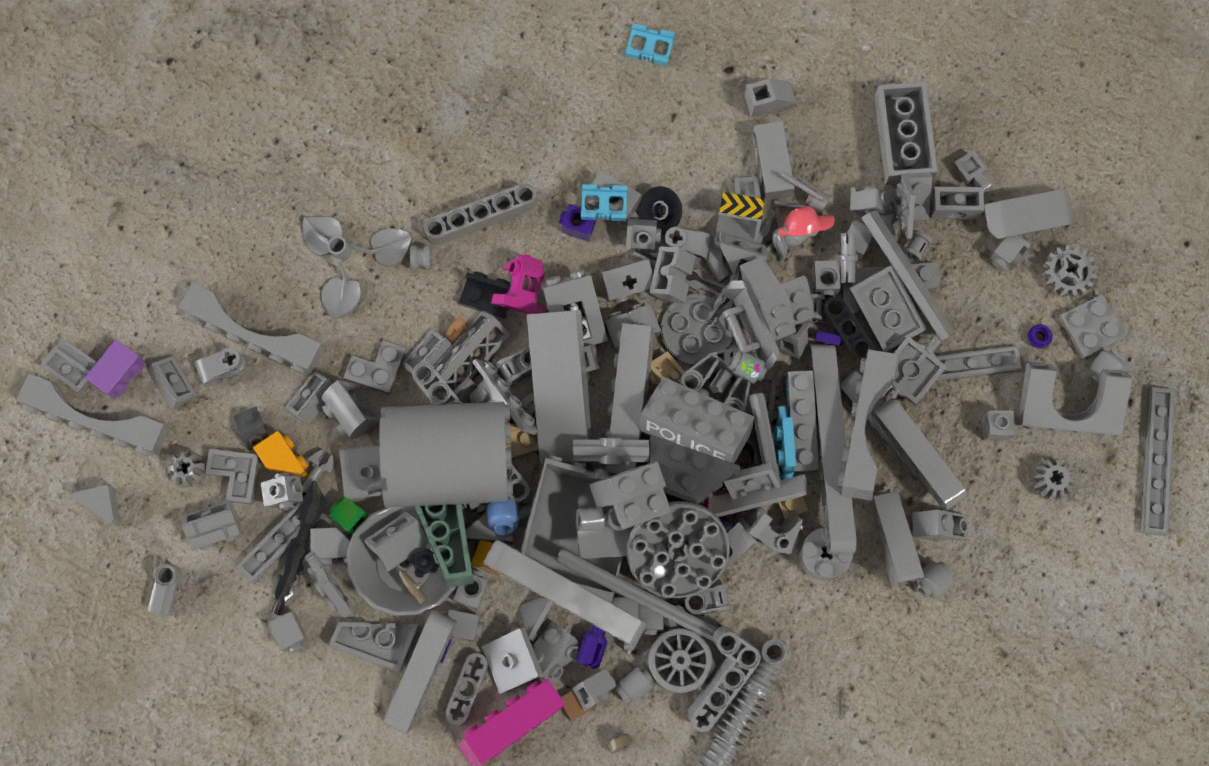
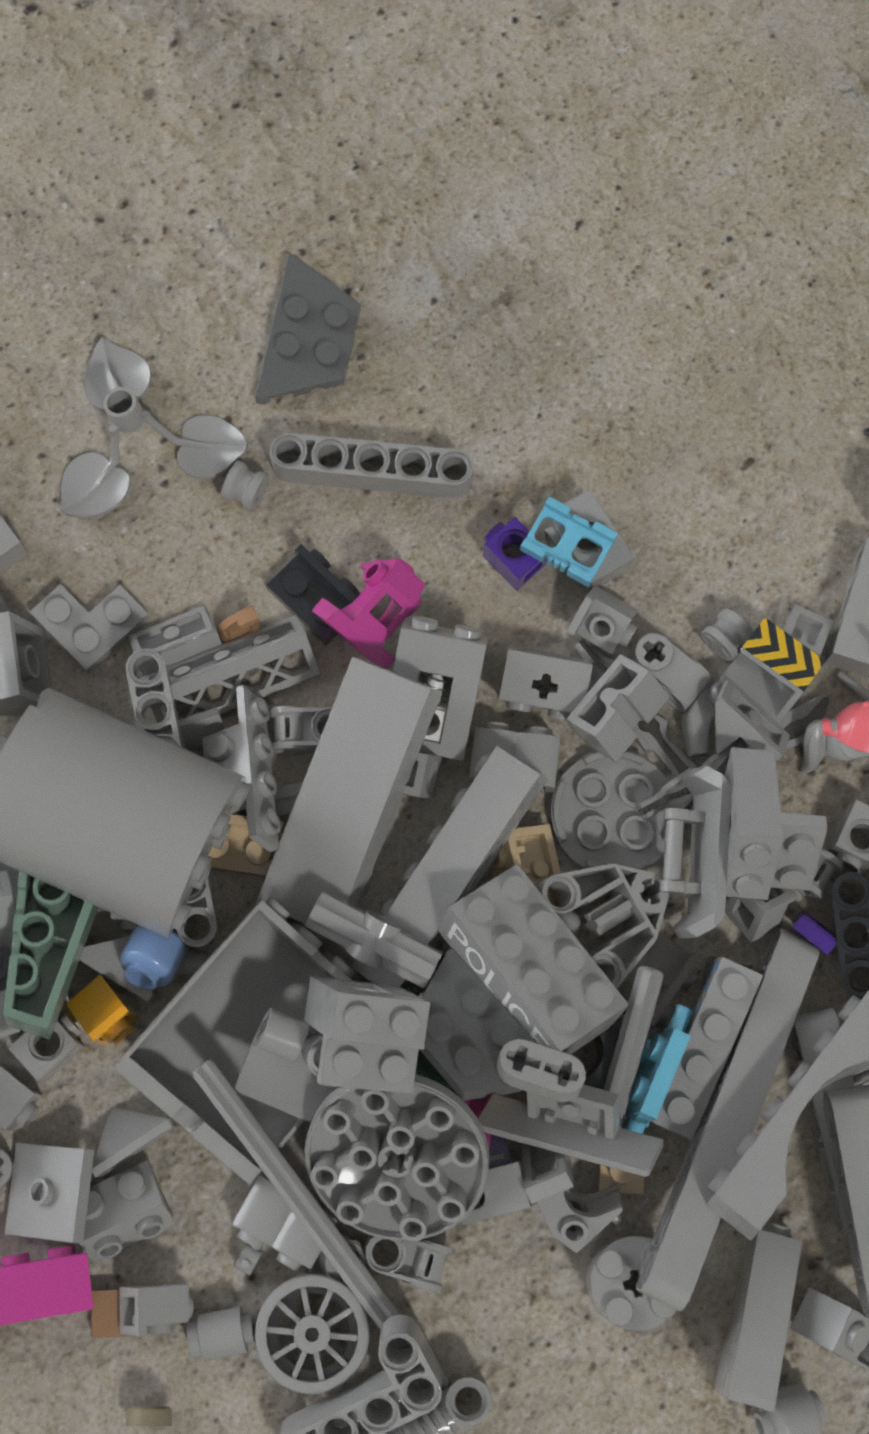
camera: 20 degrees right, 0 degrees up
(411, 162) = (308, 335): none -> dark grey wing
(564, 593) = (177, 1135): light grey beam -> none
(592, 648) = (193, 1230): dark purple arm -> none
(651, 37) = (777, 324): medium azure piece -> none
(653, 203) = (642, 586): black dish -> none
(707, 210) = (726, 634): none -> light grey wheel
(727, 469) = (540, 1070): none -> light grey beam
(747, 366) = (661, 916): light grey brick -> none

